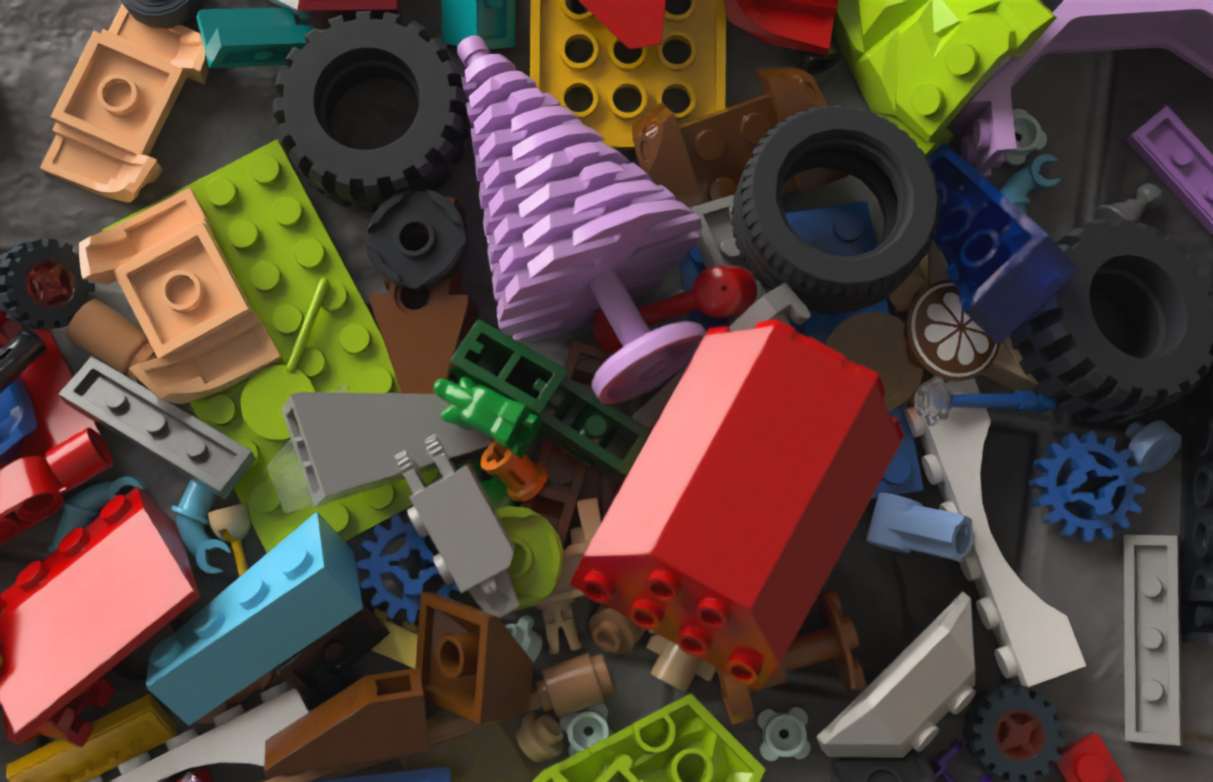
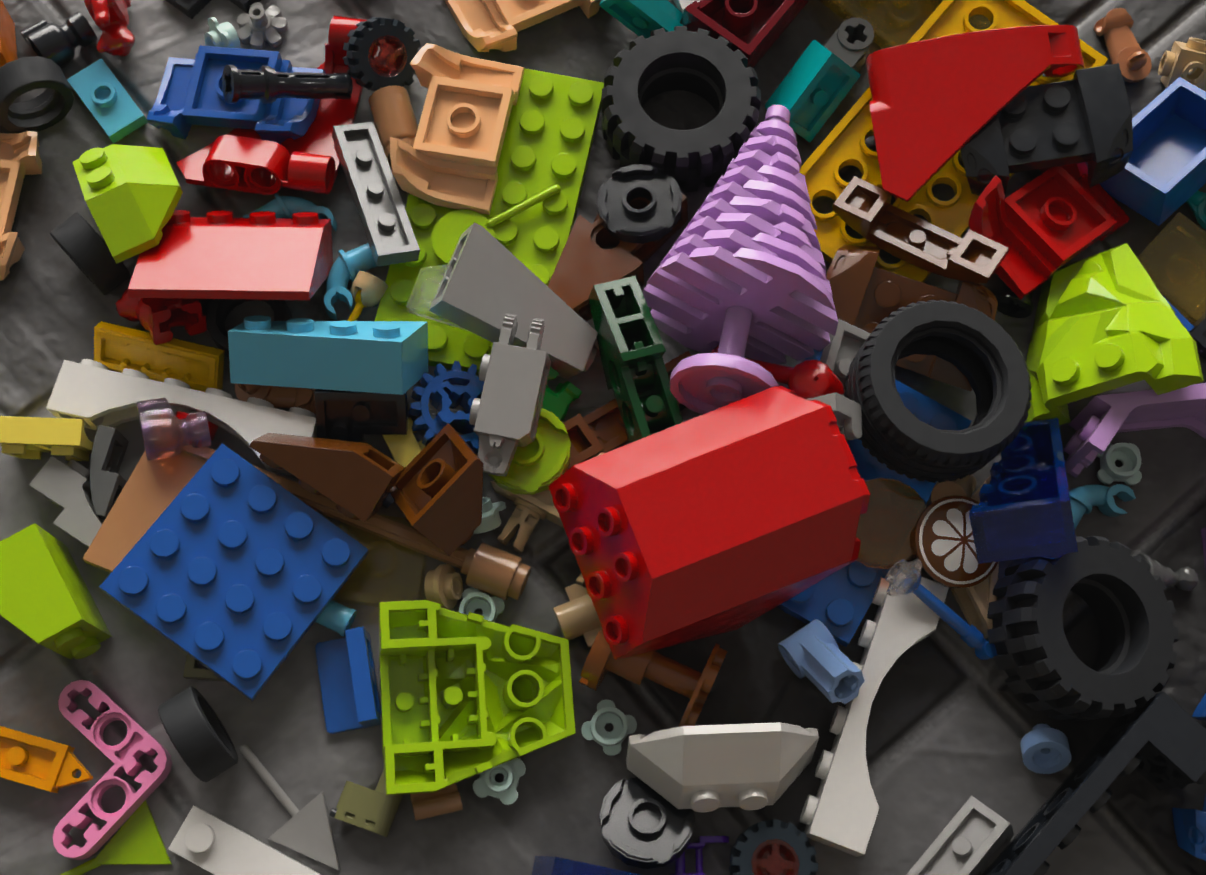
camera: 40 degrees right, 10 degrees down
(488, 413) = (591, 337): green animal -> none
(514, 471) = (577, 393): orange bush -> none
(613, 630) = (554, 560): medium nougat plate -> none
(696, 71) = (914, 239): none -> reddish brown slope
(1096, 503) = (990, 743): blue gear -> none

